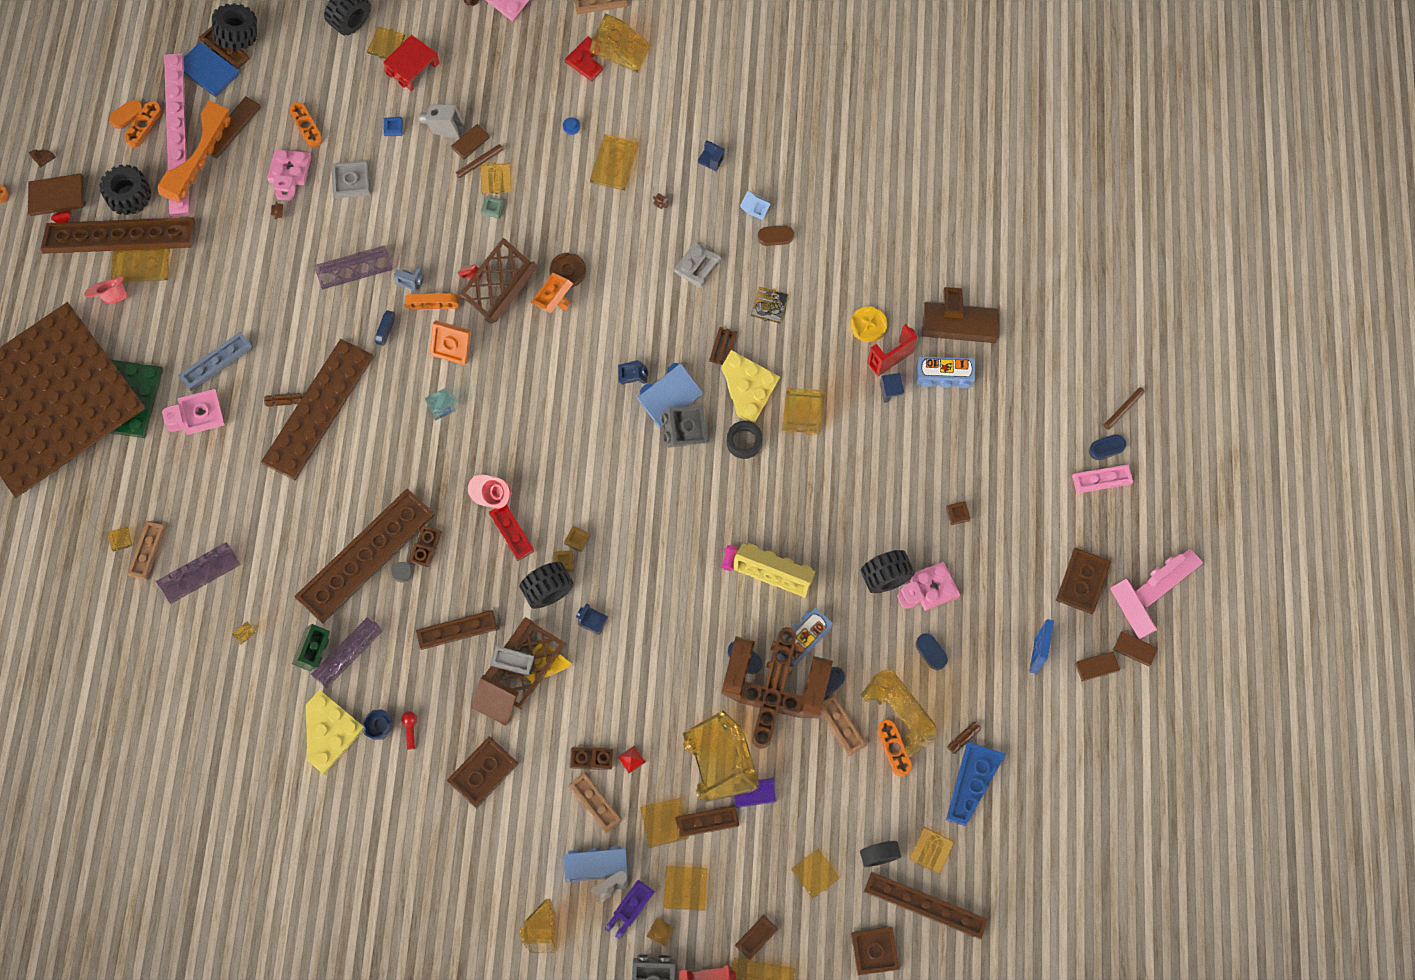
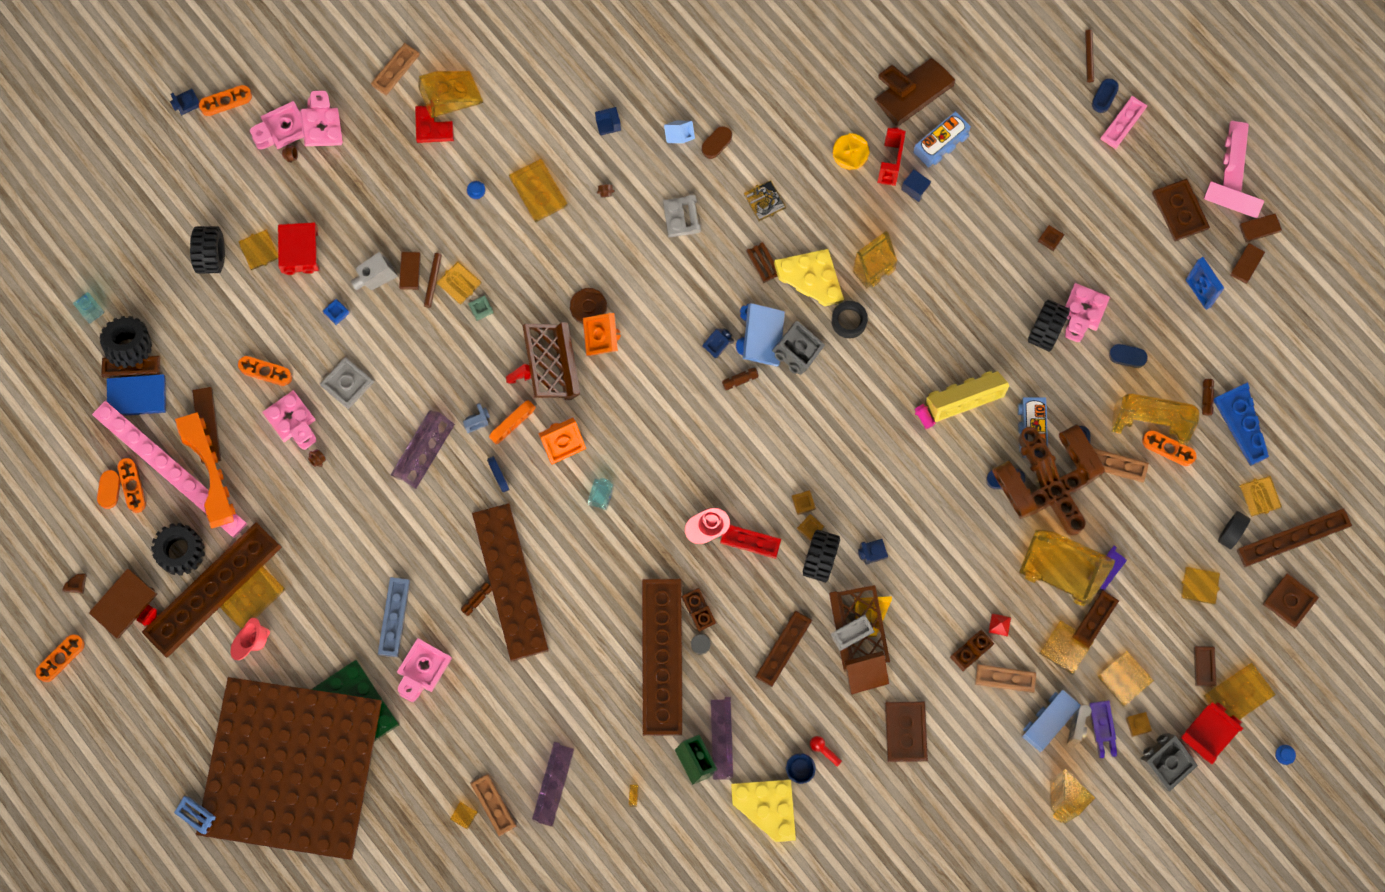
camera: 40 degrees left, 5 degrees up
(622, 412) = (740, 378): none -> reddish brown axle

